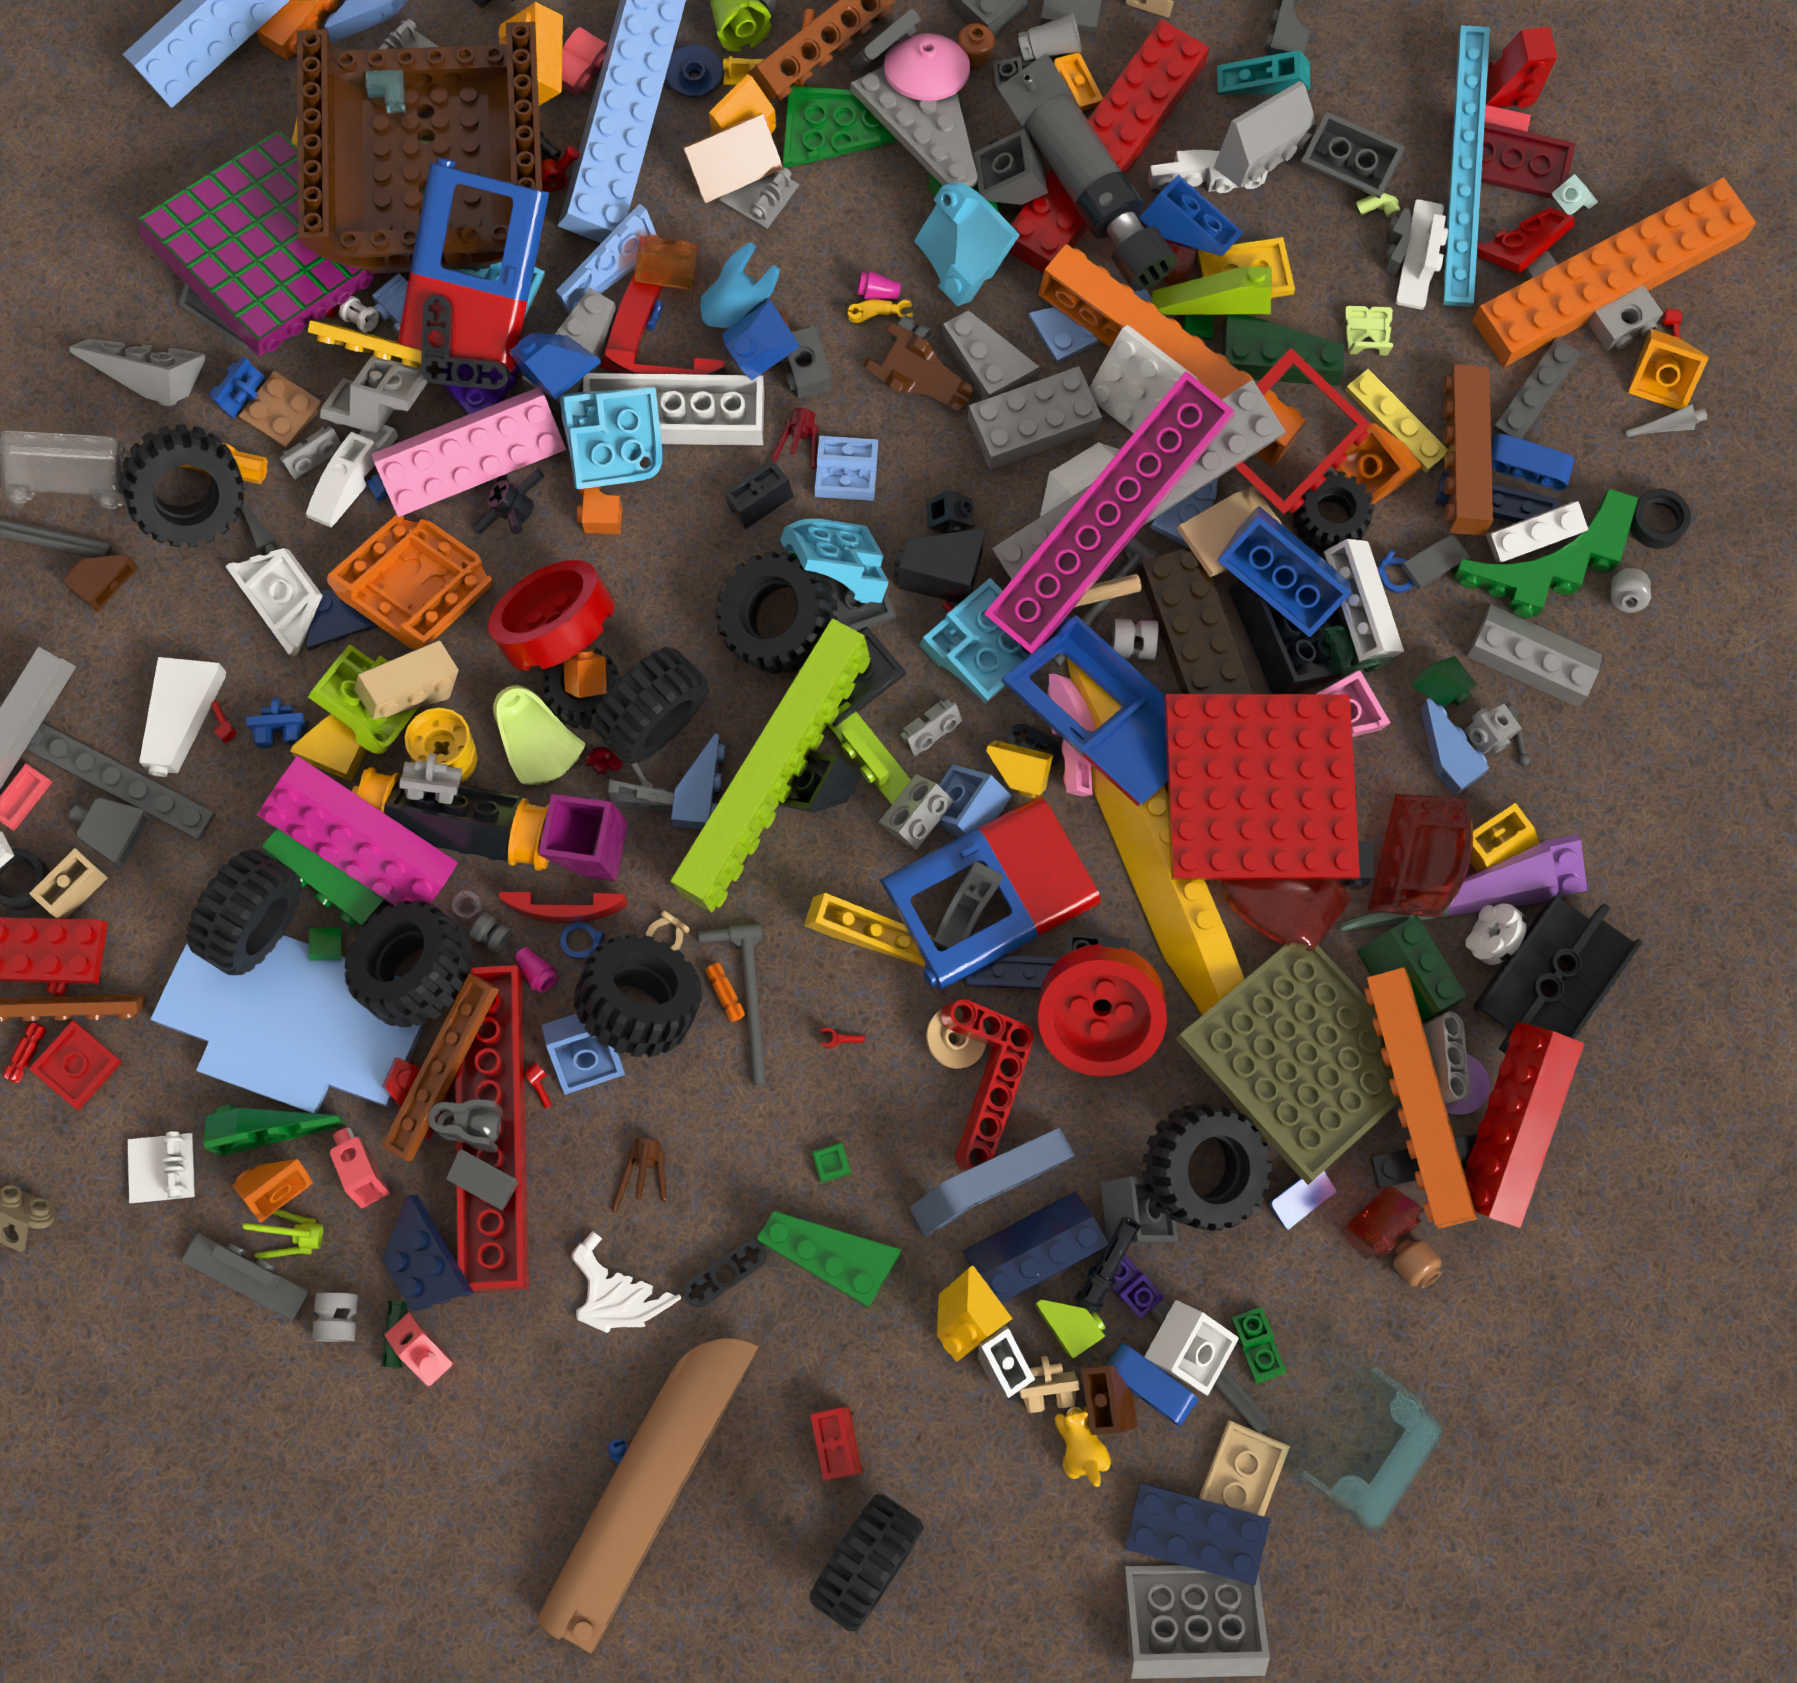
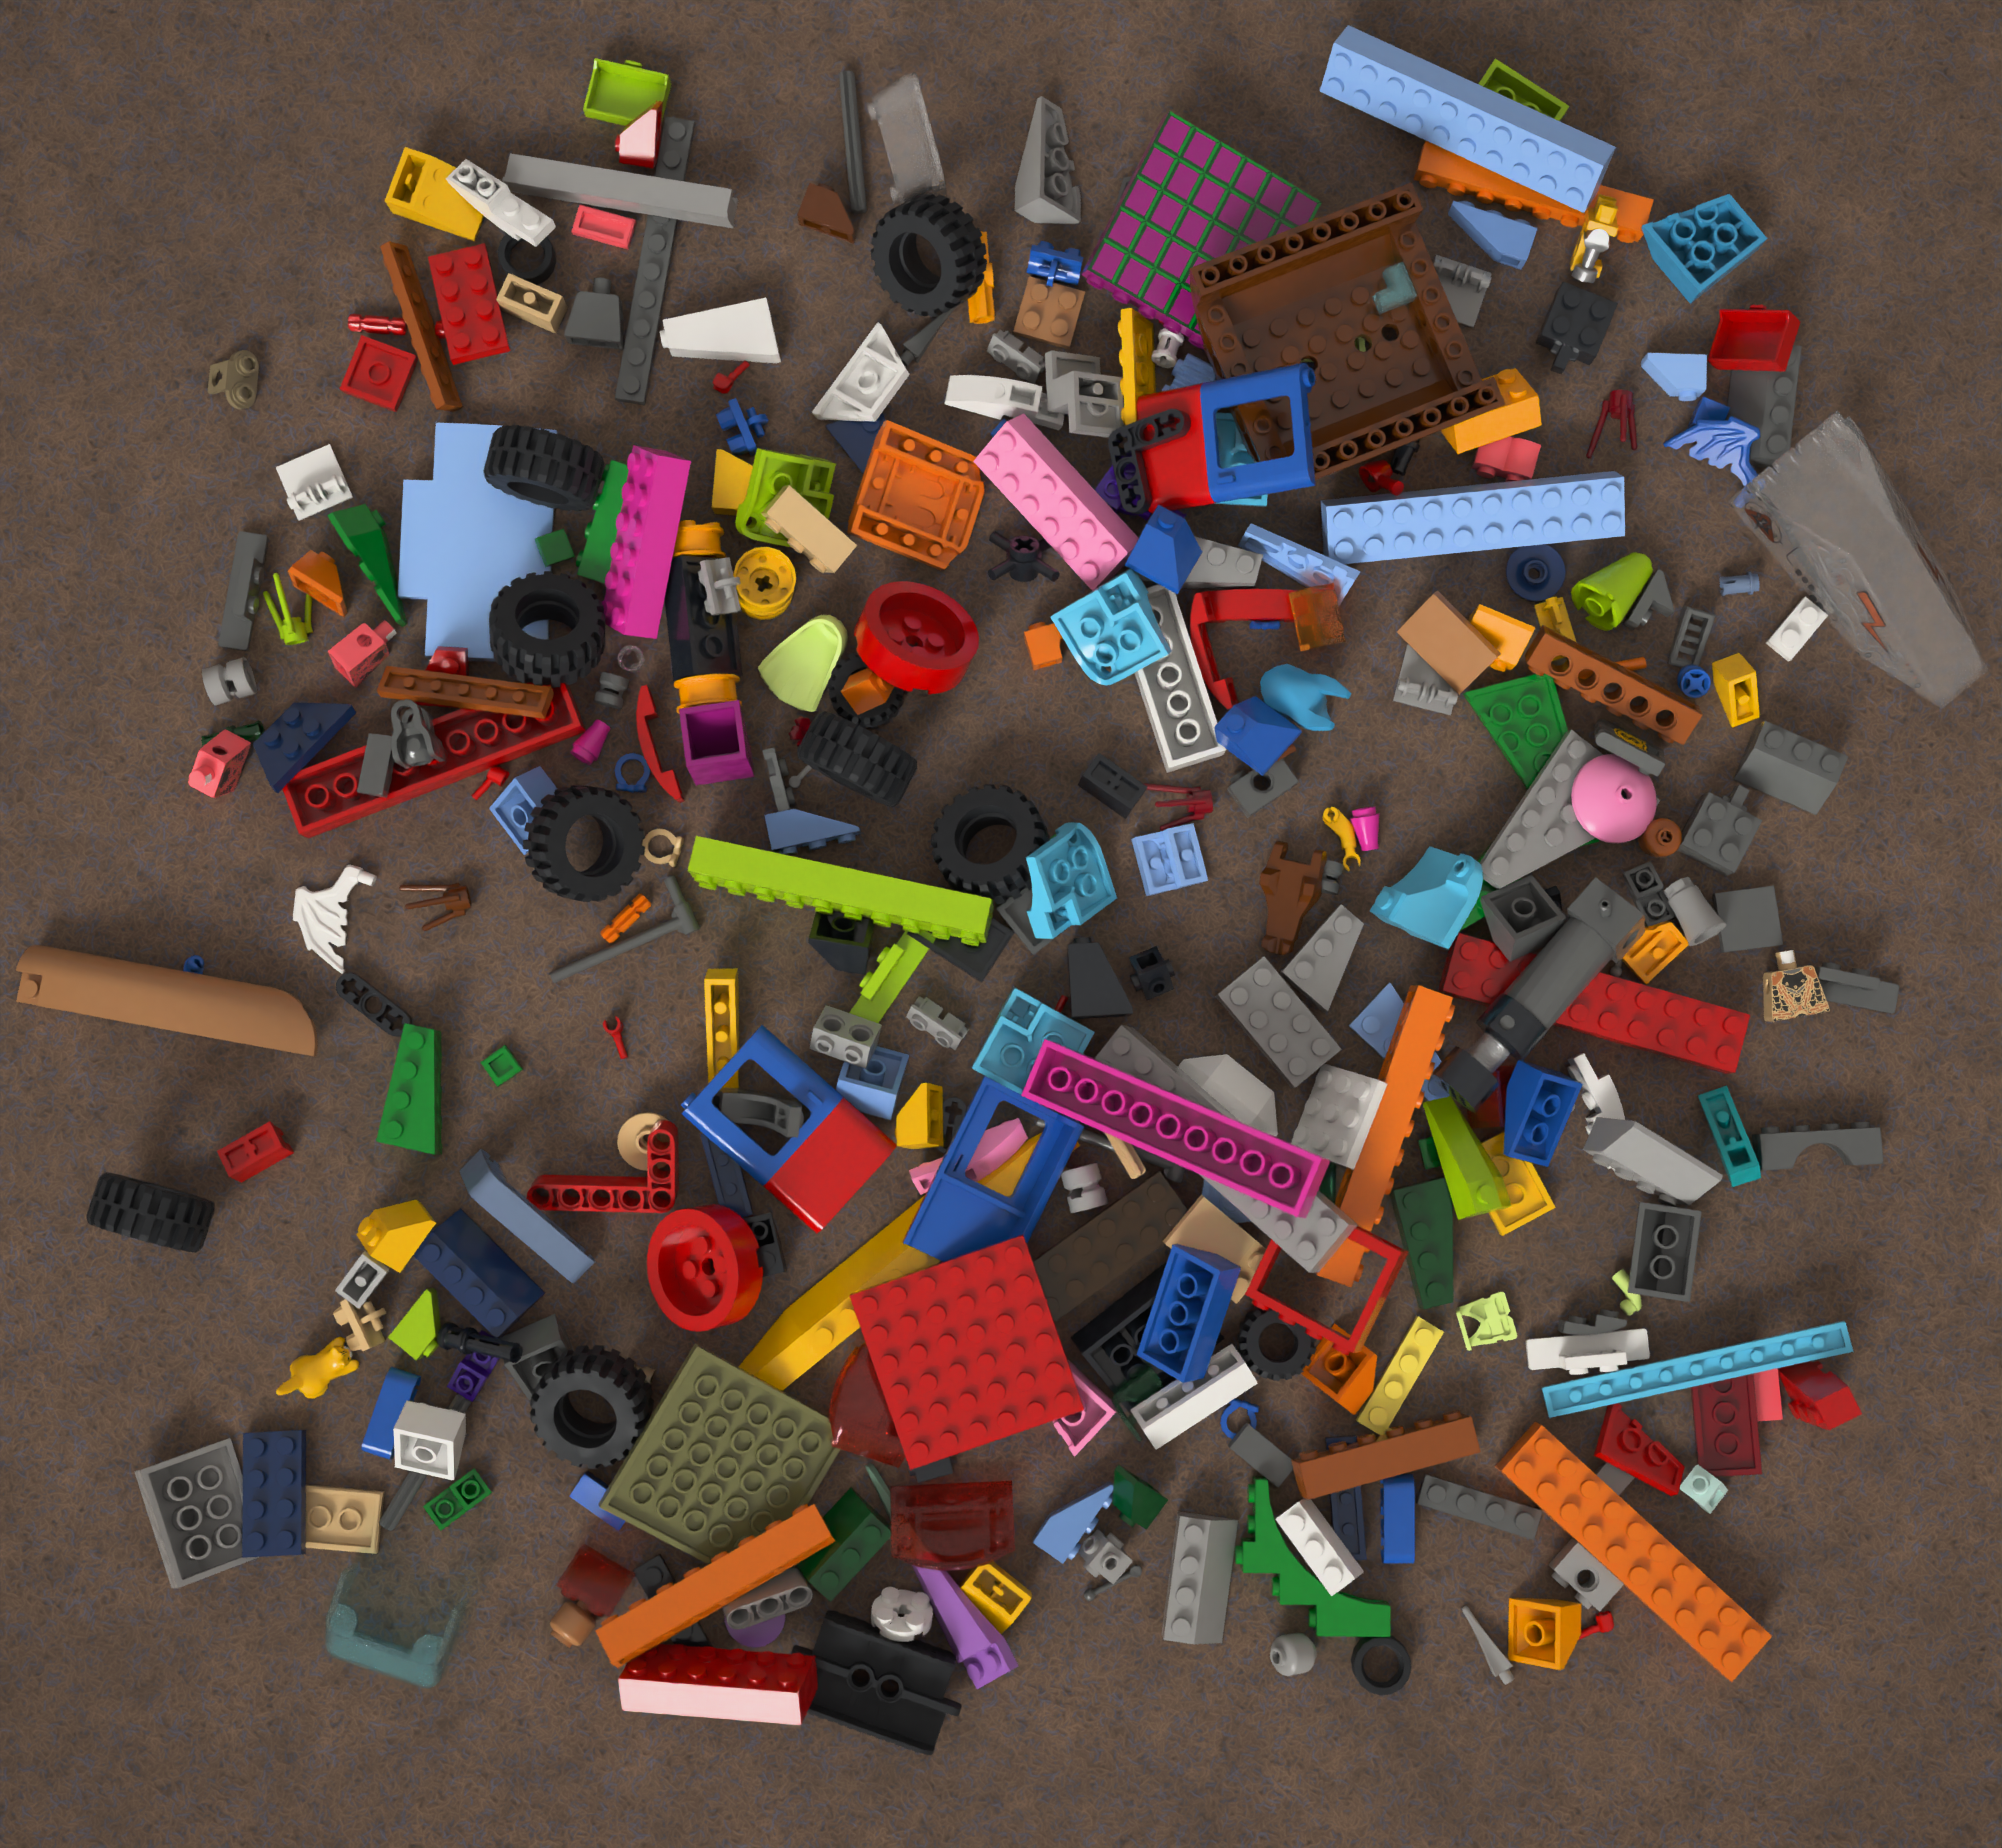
camera: 75 degrees right, 10 degrees up
(1108, 1401) = (358, 1380): reddish brown slope -> none

